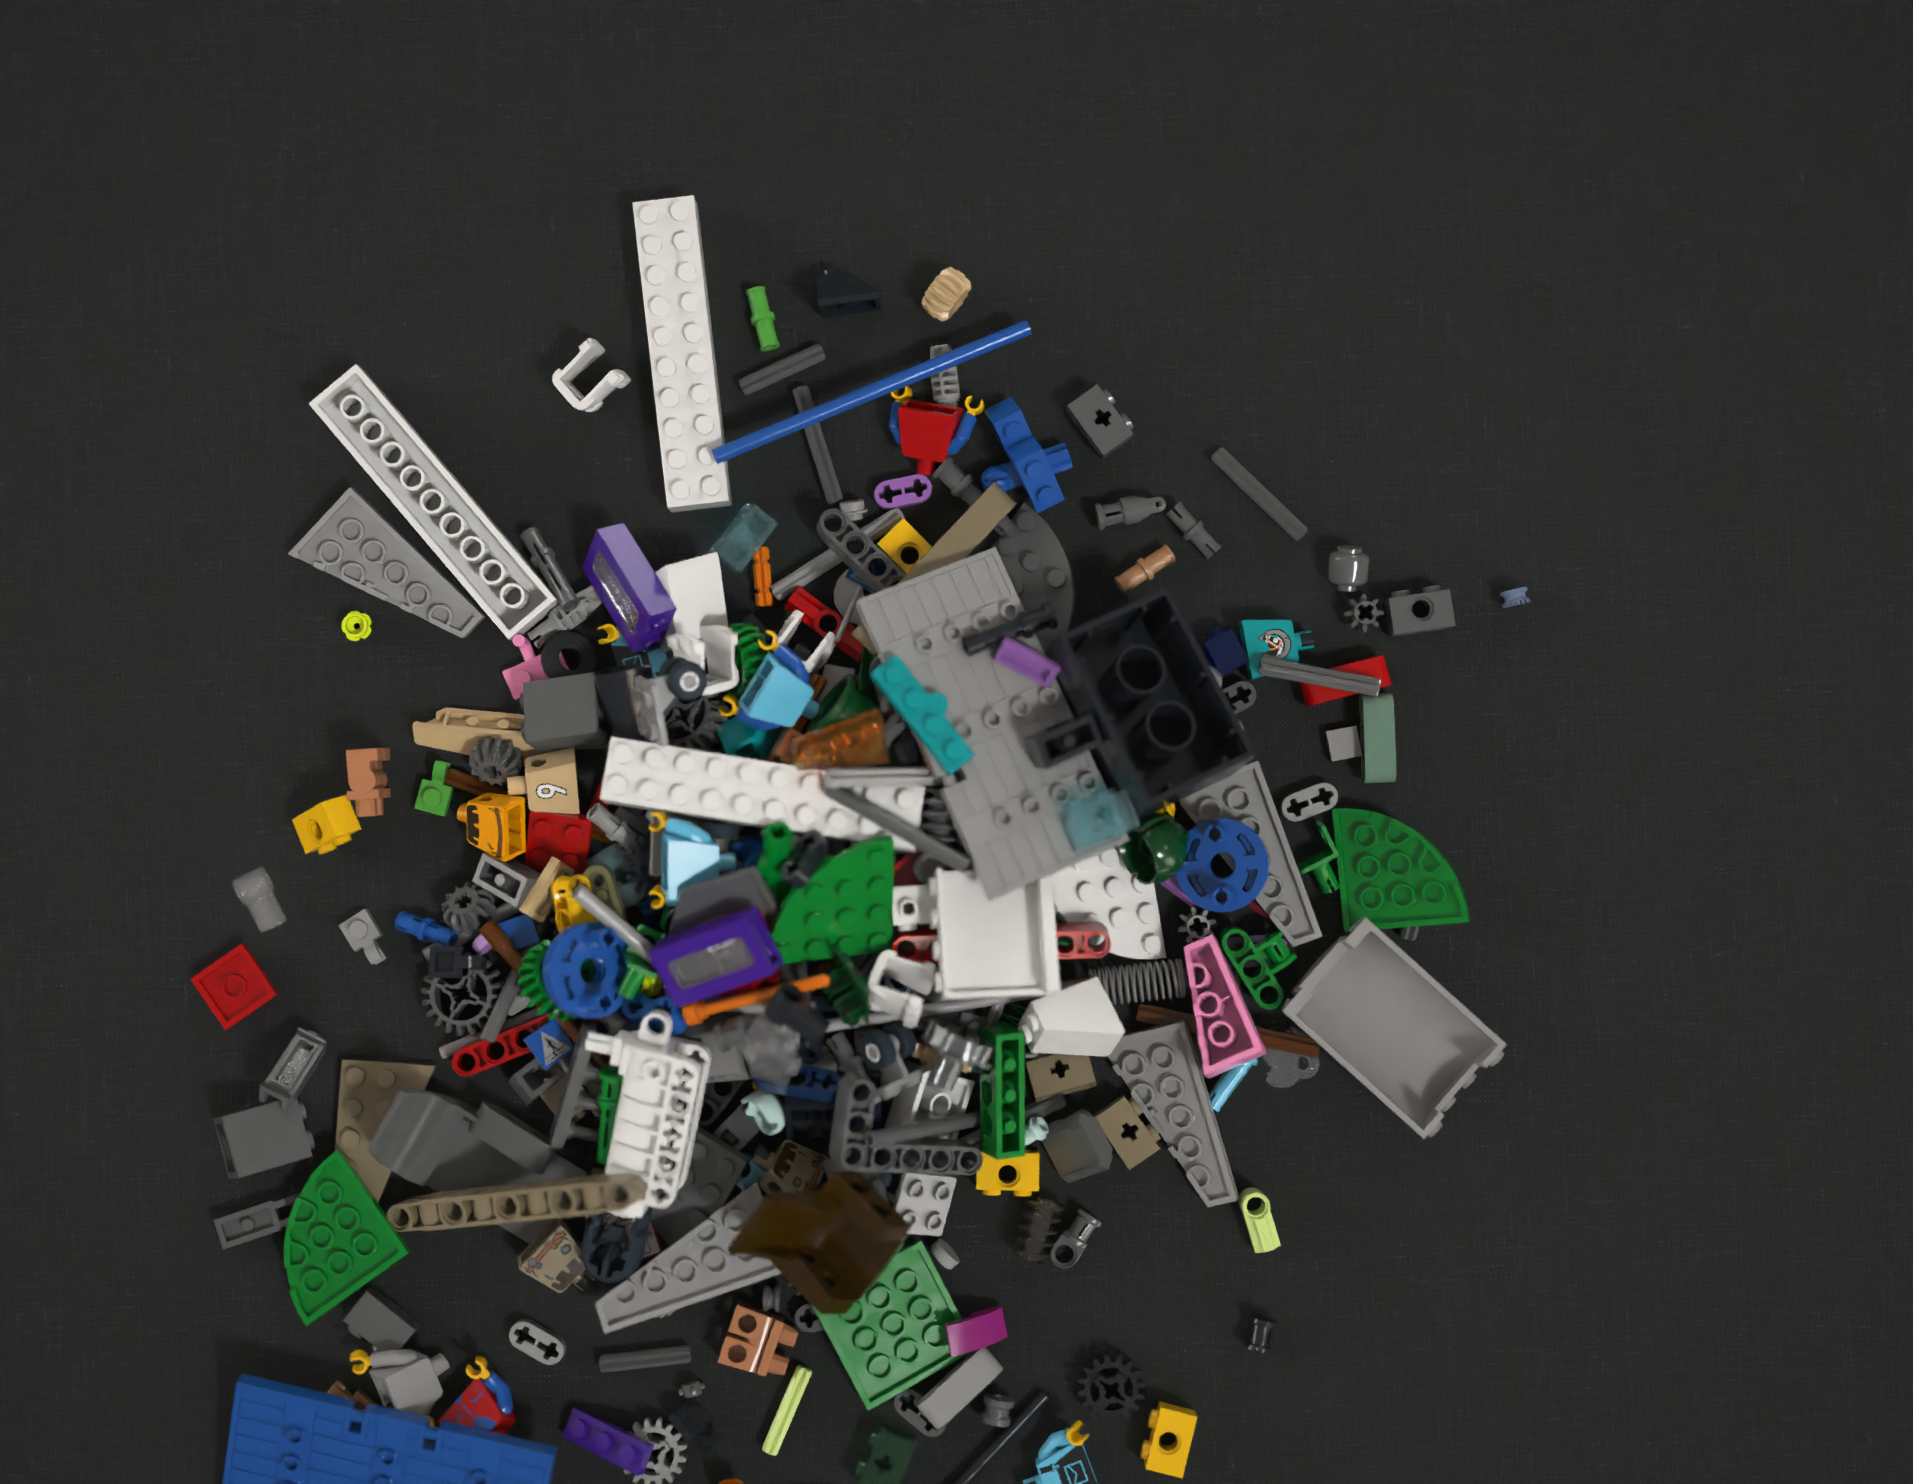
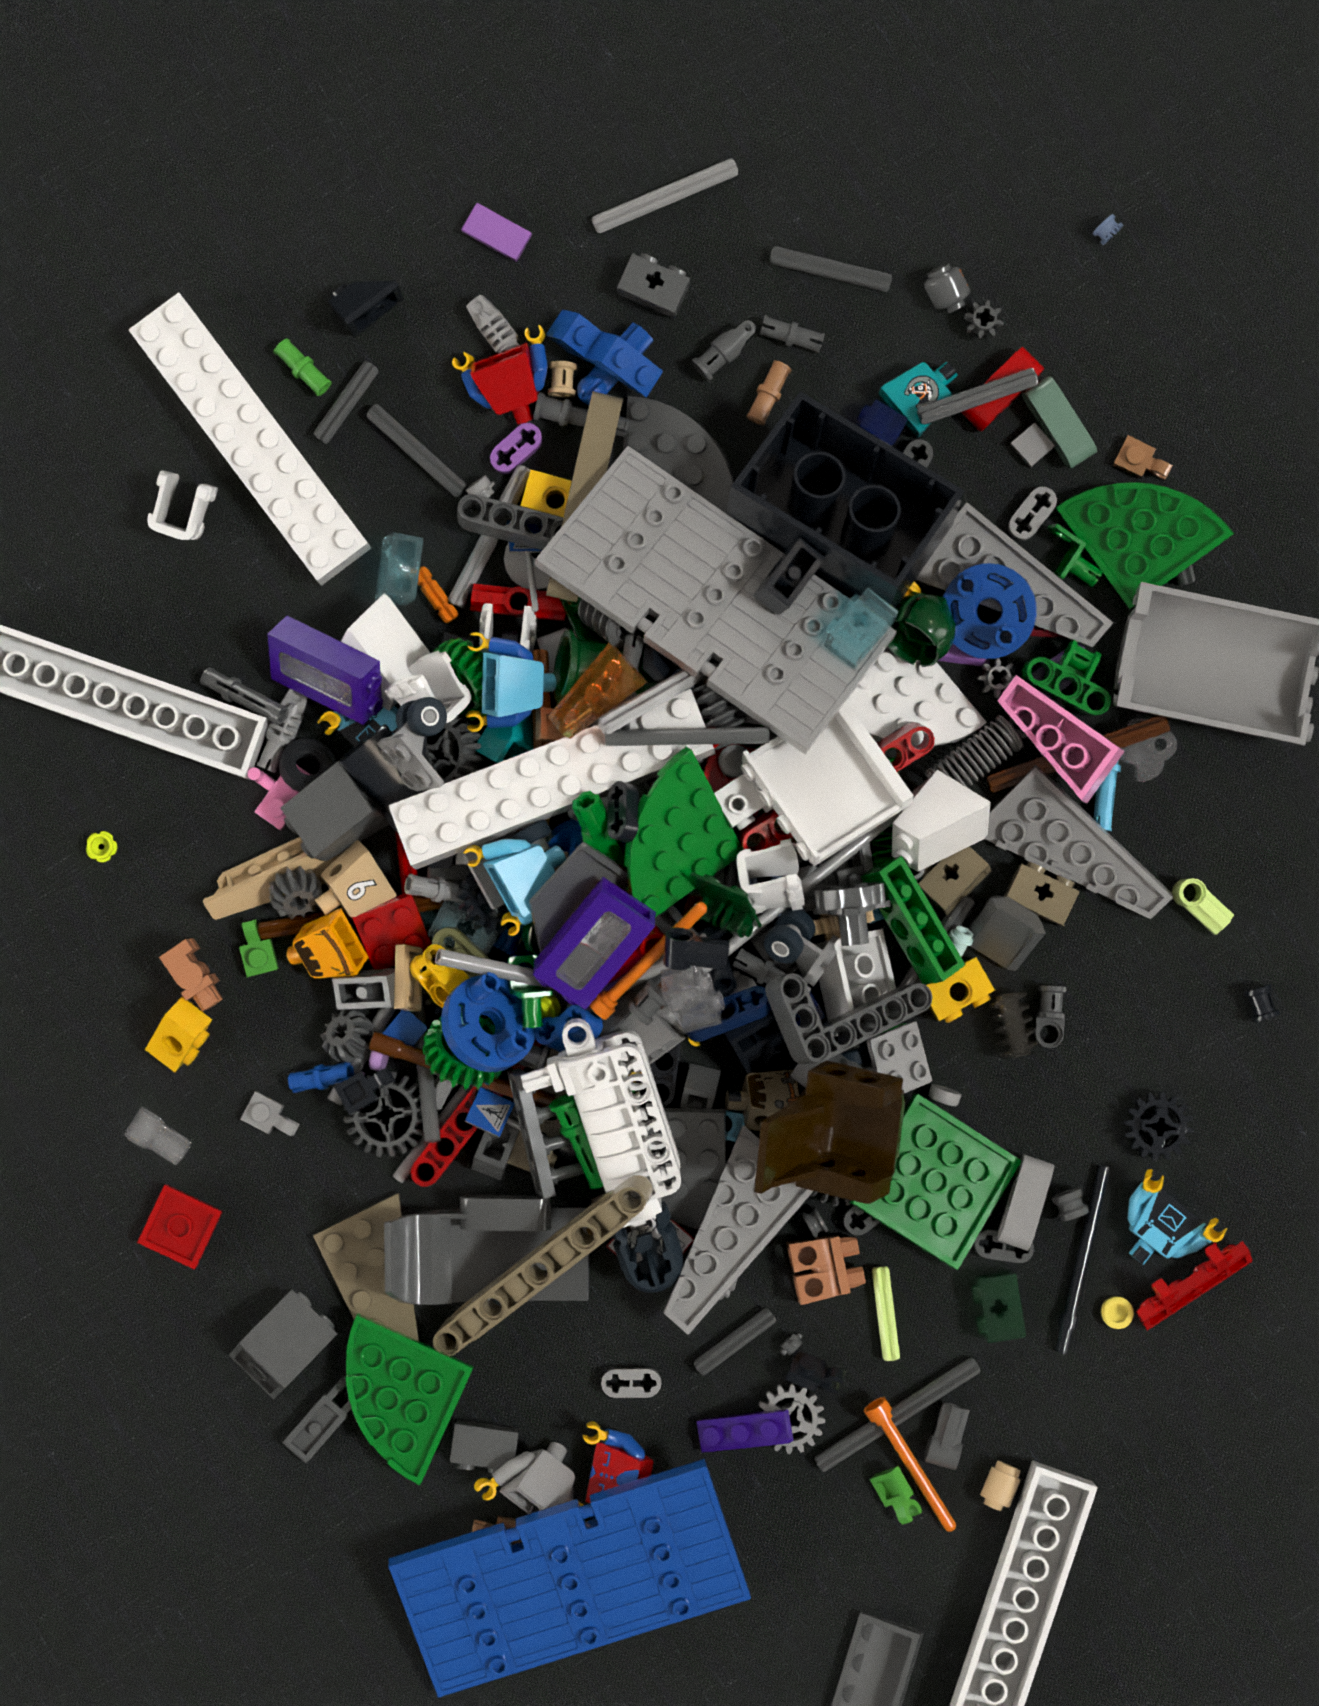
camera: 30 degrees left, 0 degrees up
(294, 1068) = (276, 1265): dark grey window -> none
(375, 557) = (79, 775): light grey wing -> none
(556, 1258) = (606, 1298): dark tan torso -> none
(767, 1111) = (716, 1058): light aqua hair -> none
(871, 392) = (437, 374): blue piece -> none
(922, 1129) = (862, 992): dark grey piece -> none
(923, 714) = (652, 624): teal hinge -> none
(946, 294) = (453, 251): tan gear -> none
(976, 1331) = (1011, 1146): magenta slope -> none
(984, 450) = (562, 379): none -> tan bush
(994, 299) = (496, 232): none -> medium lavender tile
(1022, 626) = (693, 498): black pin -> none
(1026, 662) = (715, 528): medium lavender tile -> none
(1154, 350) = (665, 195): none -> light grey axle
(1173, 1457) = (1248, 1155): yellow brick -> none
(1403, 621) = (1023, 307): dark grey brick -> none
(1425, 807) = (1137, 458): none -> medium nougat plate

